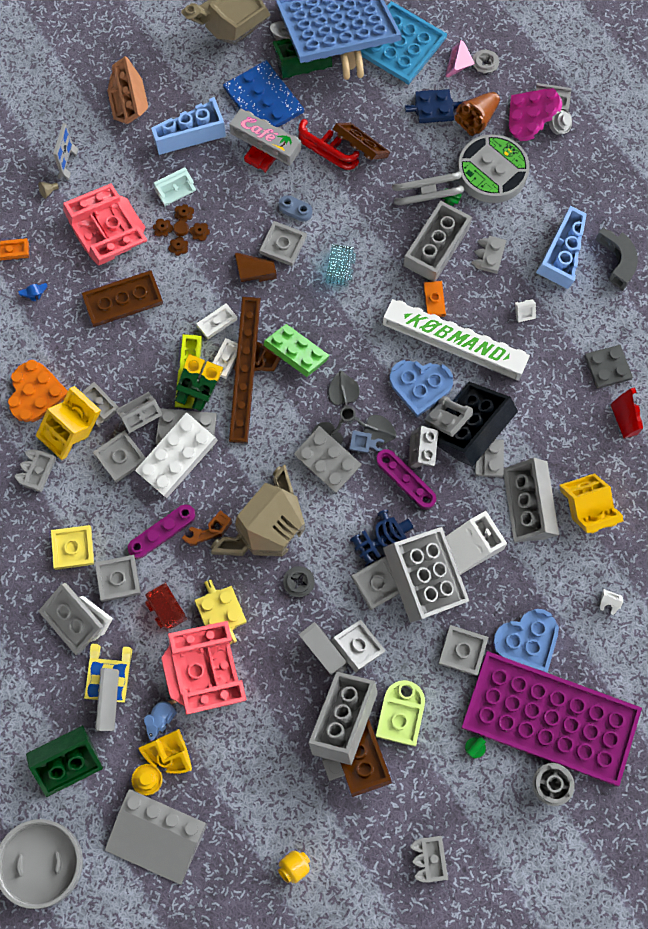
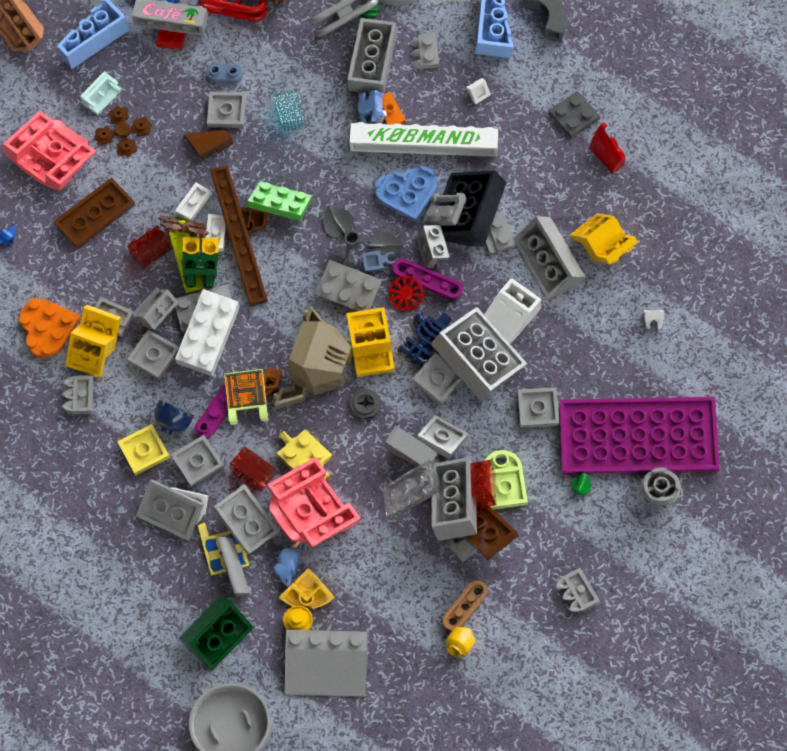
camera: 15 degrees left, 5 degrees down
(110, 526) = (172, 418): none -> dark blue cylinder
(137, 657) = (246, 519): none -> light grey plate
(159, 350) = (150, 247): none -> clear red hinge
(188, 527) = (244, 392): none -> flag
(203, 348) = (173, 225): none -> reddish brown plant
(303, 831) = (466, 598): none -> medium nougat plate
(305, 690) = (410, 489): none -> clear plate
(326, 523) = (370, 342): none -> yellow bracket
(378, 713) = (483, 483): none -> clear red hinge
(380, 485) = (406, 293): none -> red wheel
(418, 289) = (371, 106): none -> medium blue animal
(529, 640) = (594, 376): medium blue plate -> none

